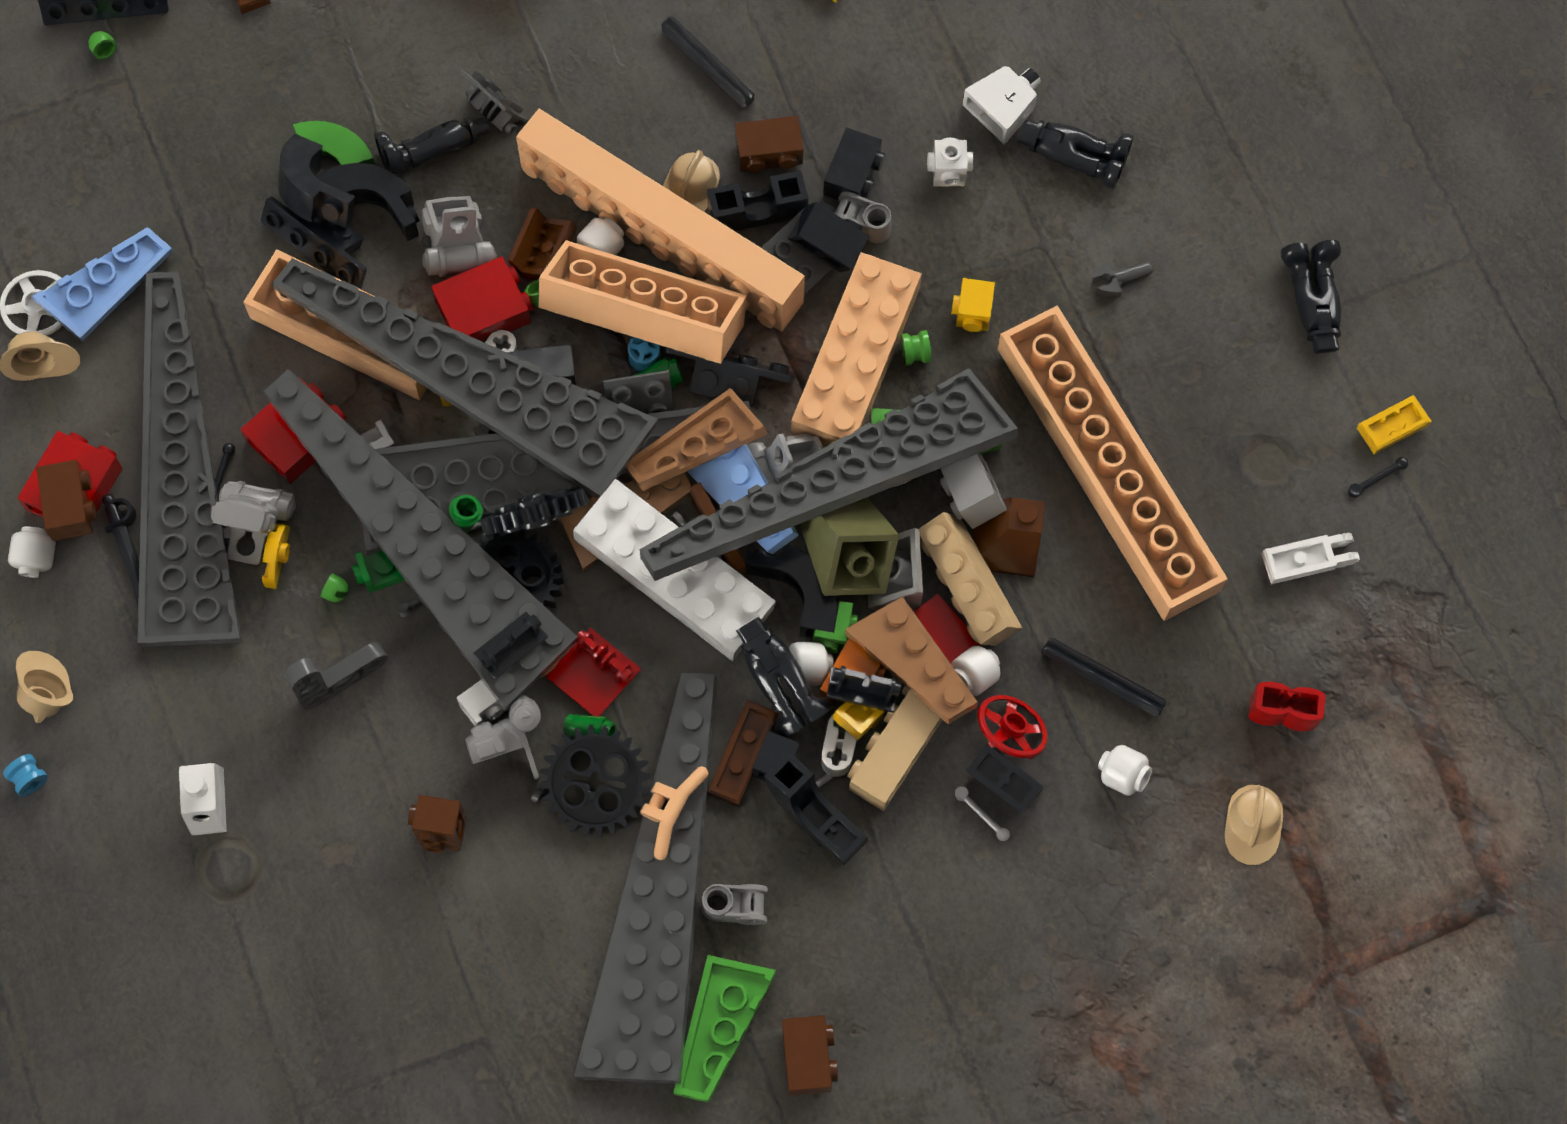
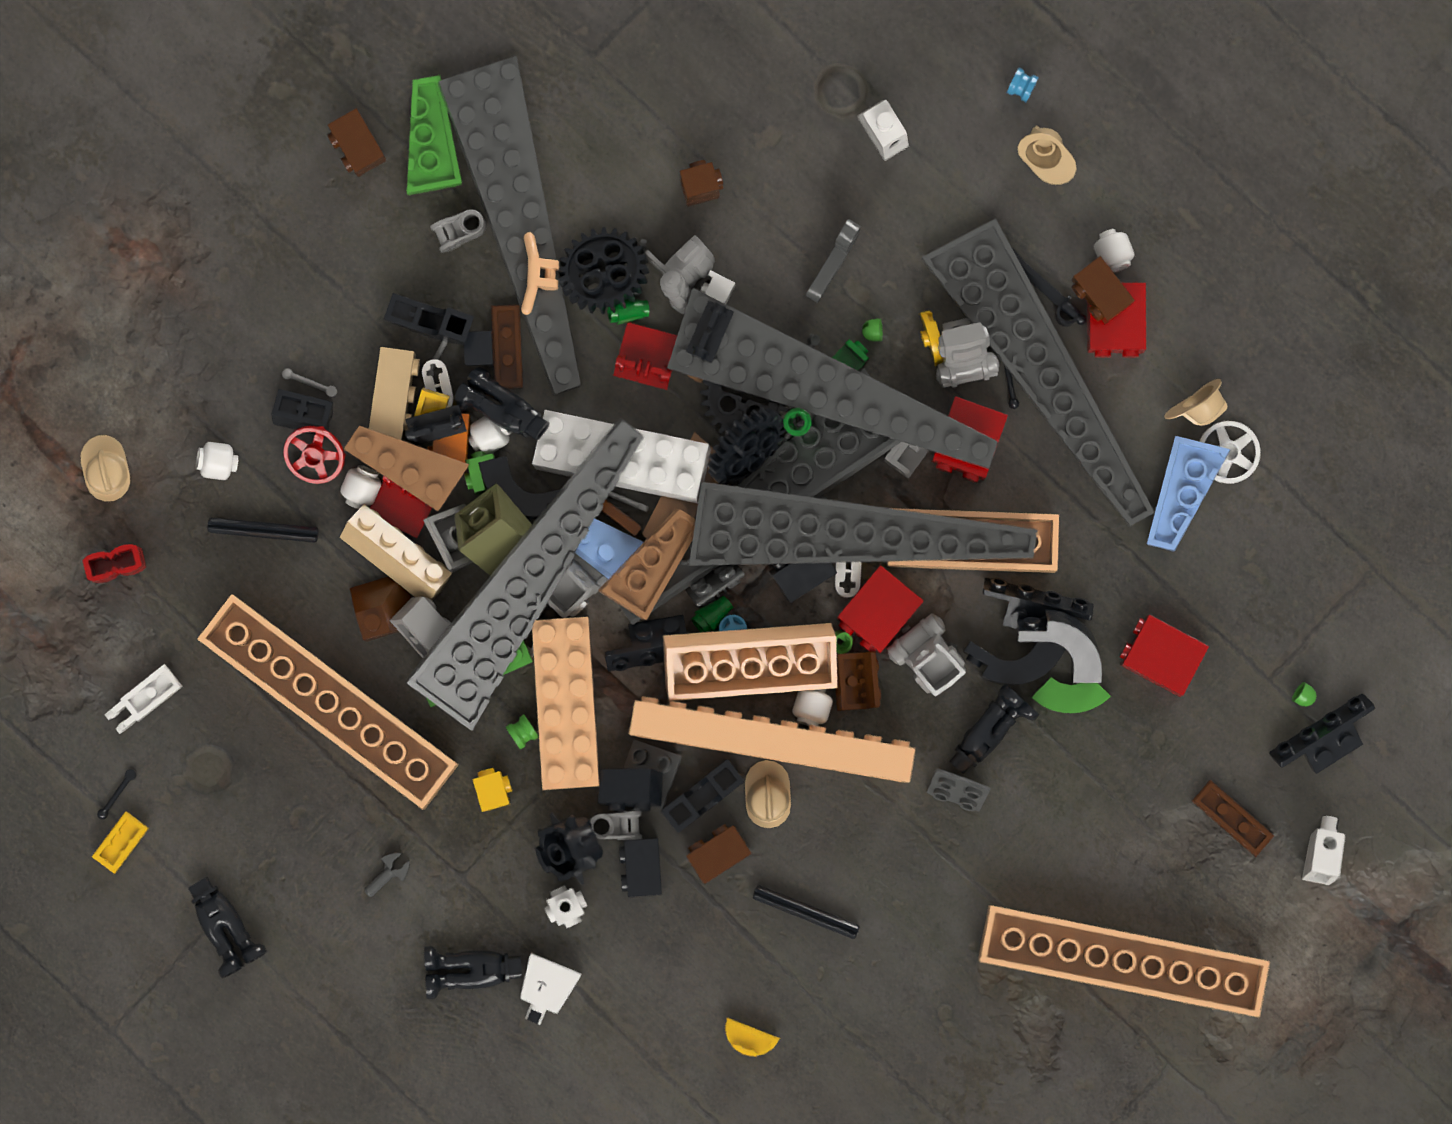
camera: 155 degrees right, 15 degrees up
(217, 136) = (1163, 655): none -> red brick
(921, 208) = (568, 848): none -> black brick

